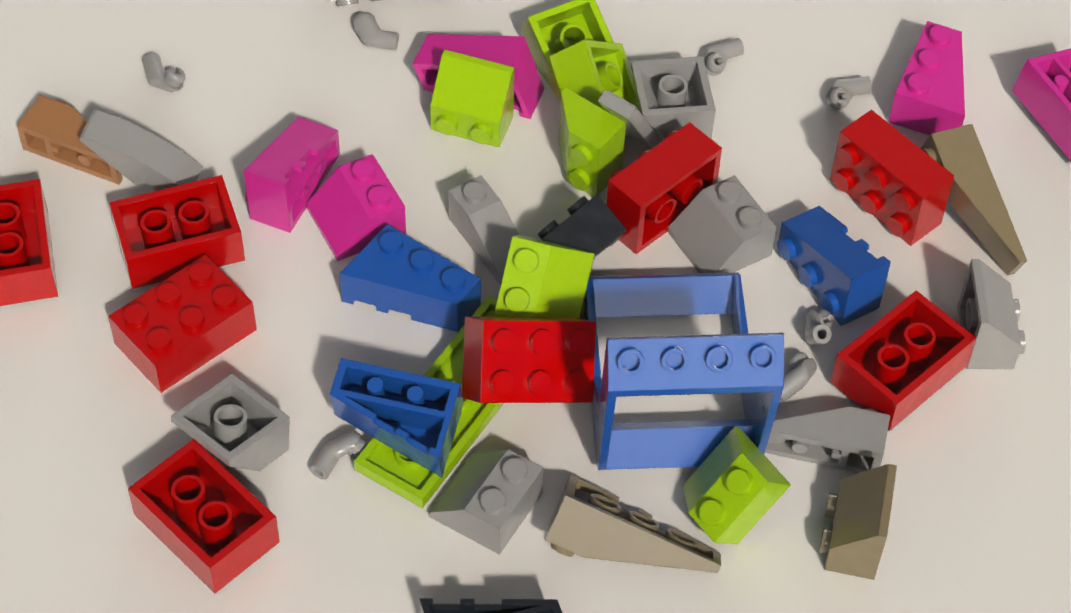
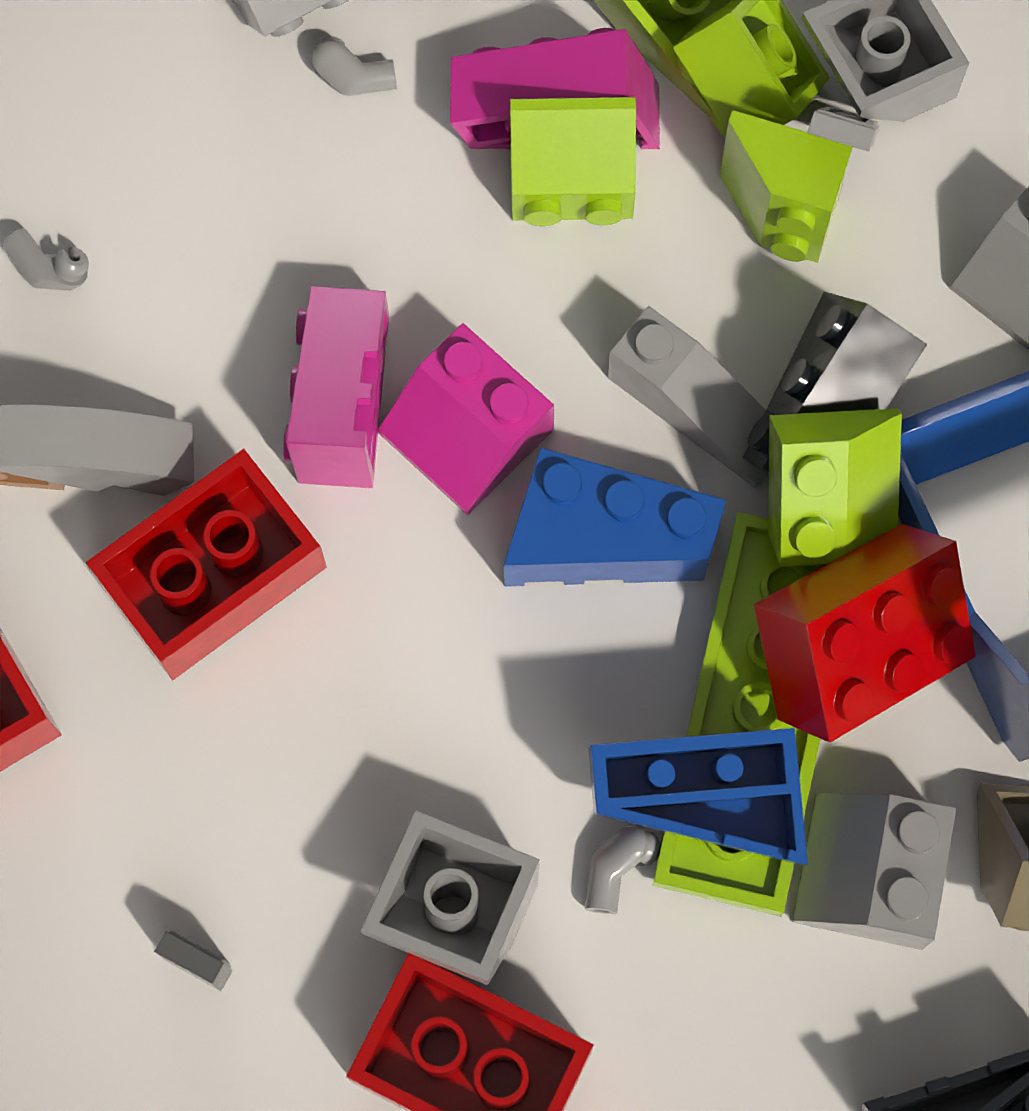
camera: 15 degrees left, 20 degrees up
(74, 421) = (194, 959): none -> dark grey tile
(182, 323) = (286, 725): red brick -> none
(662, 184) = (933, 222): red brick -> none

